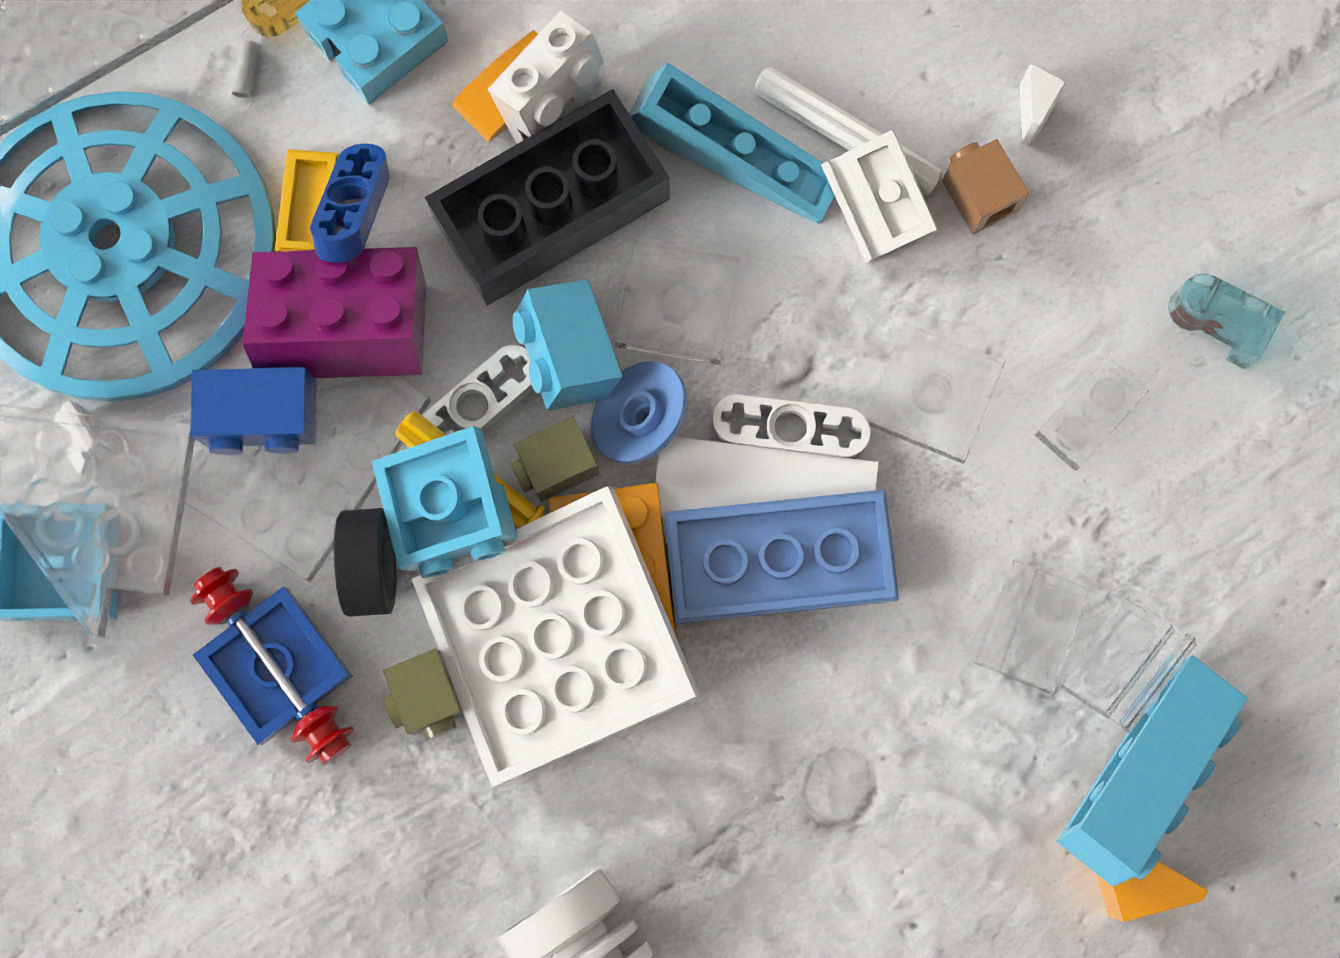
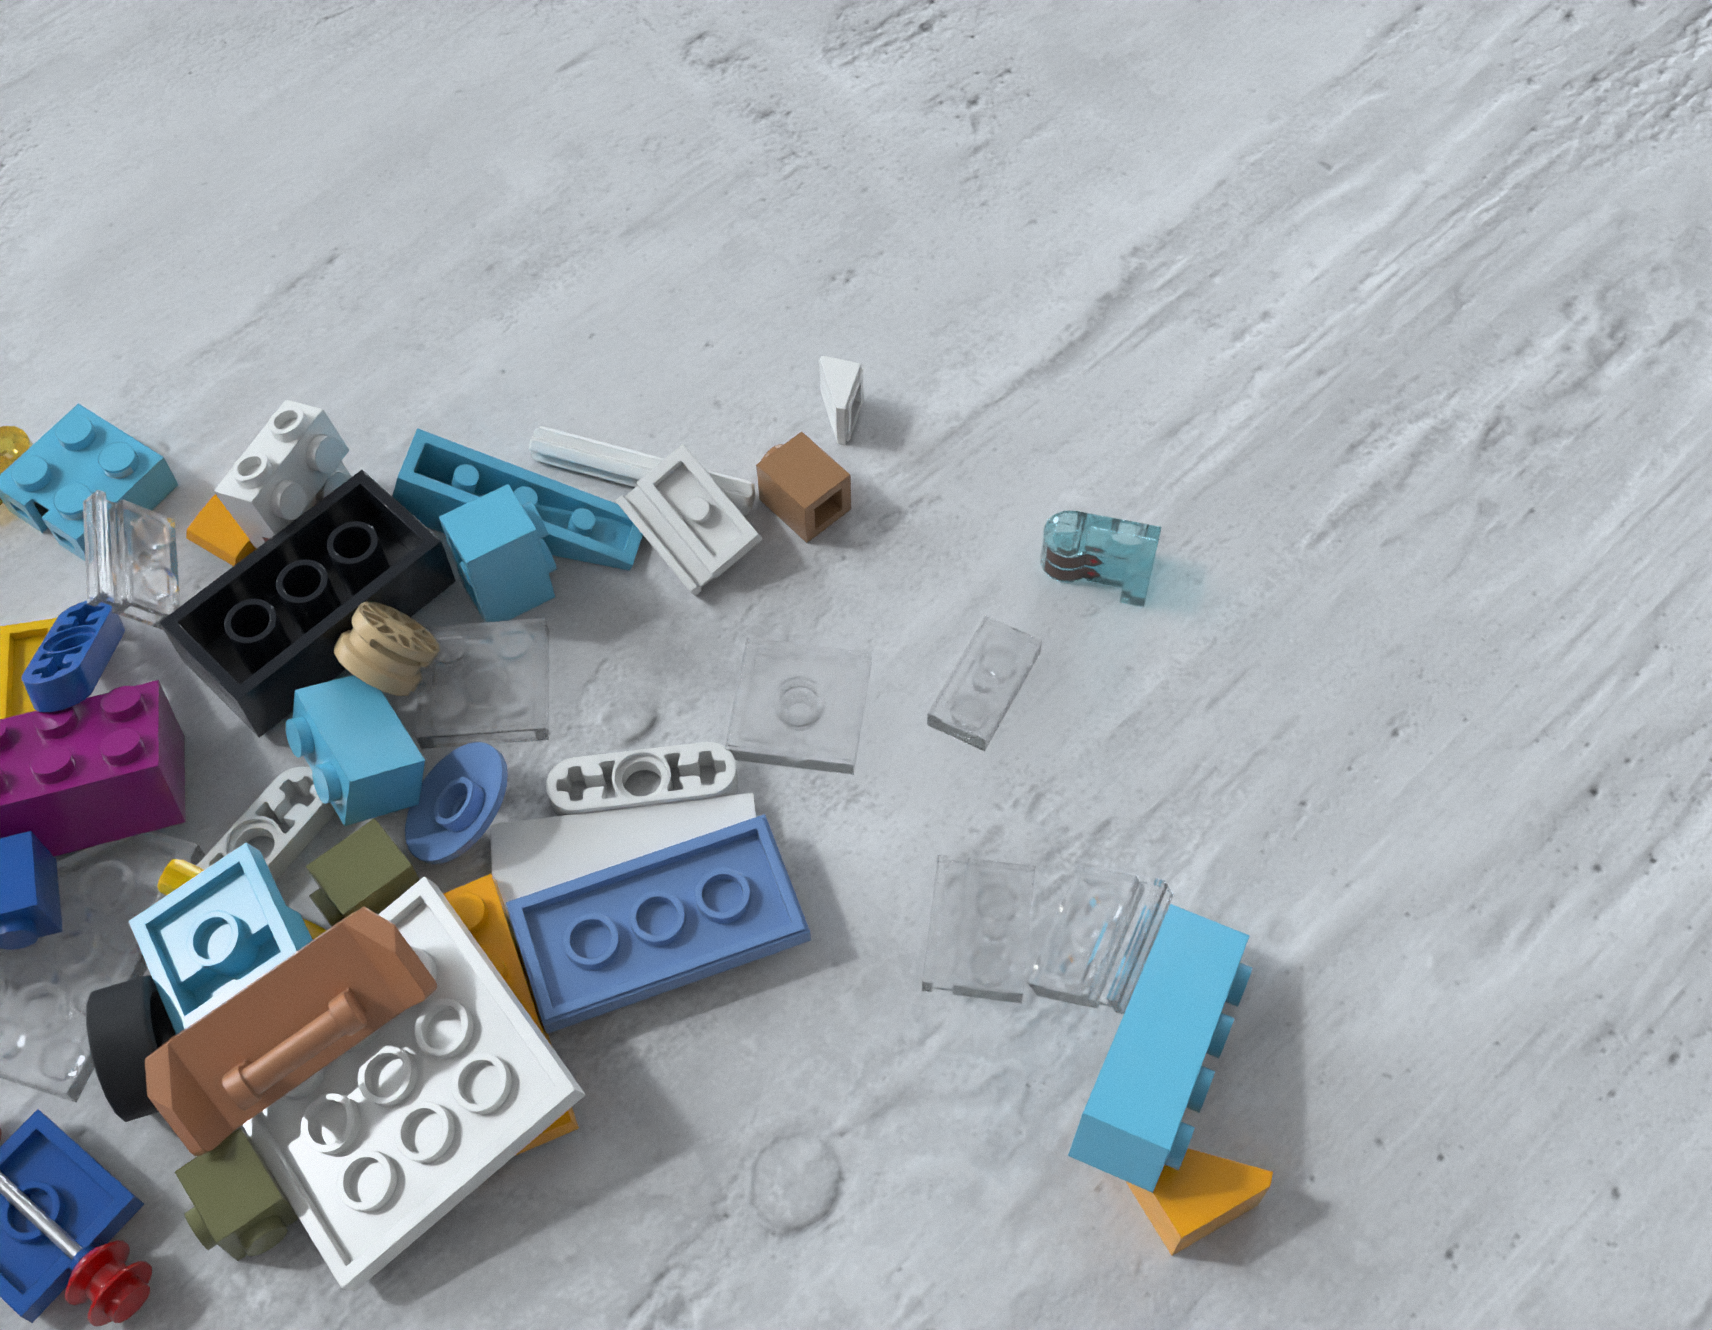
camera: 15 degrees left, 20 degrees down
(404, 118) = (130, 559): none -> clear plate
(483, 587) = (284, 1028): none -> nougat piece
(604, 265) = (386, 648): none -> tan wheel
(715, 197) = (500, 554): none -> medium azure brick

